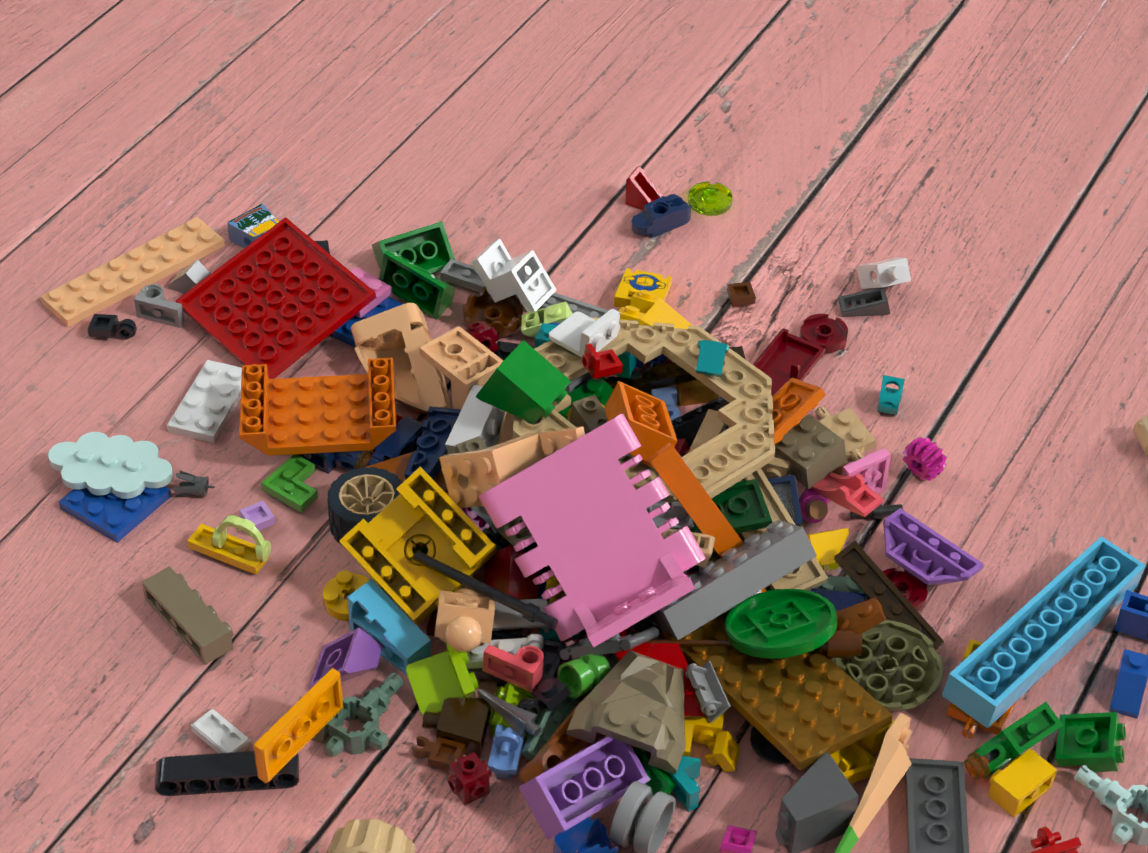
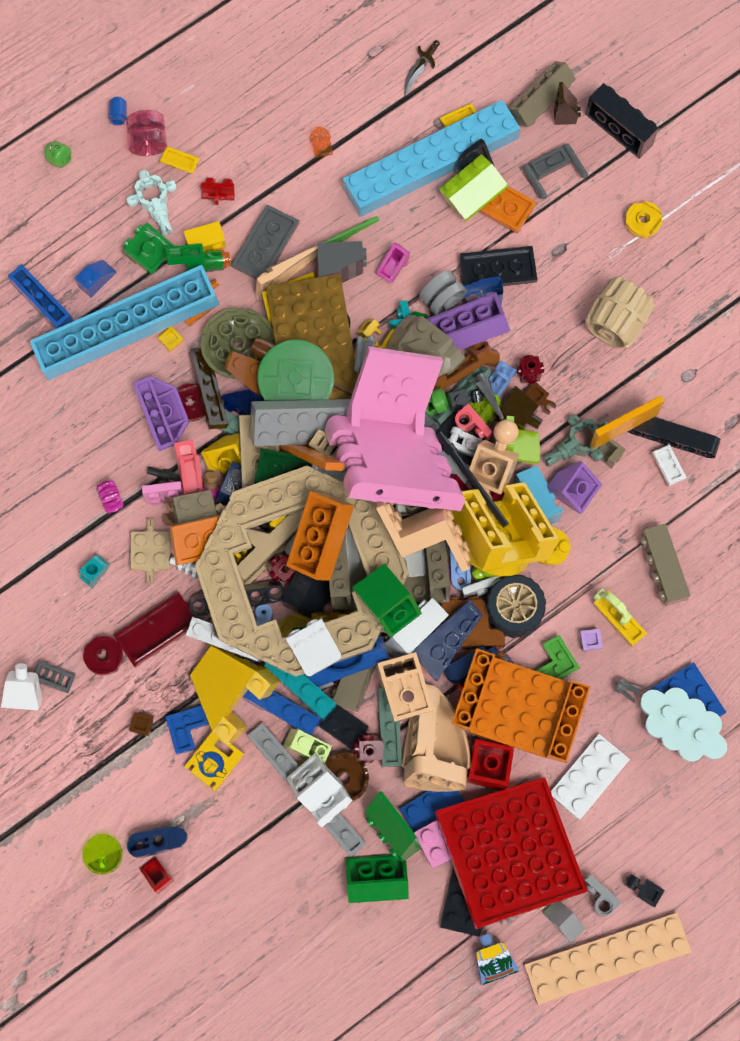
camera: 155 degrees left, 30 degrees up
(331, 356) = (490, 764): none -> red brick
(601, 363) = (316, 610): red bracket -> none
(694, 302) = (180, 728): none -> blue plate
(711, 357) = (231, 590): teal tile -> none

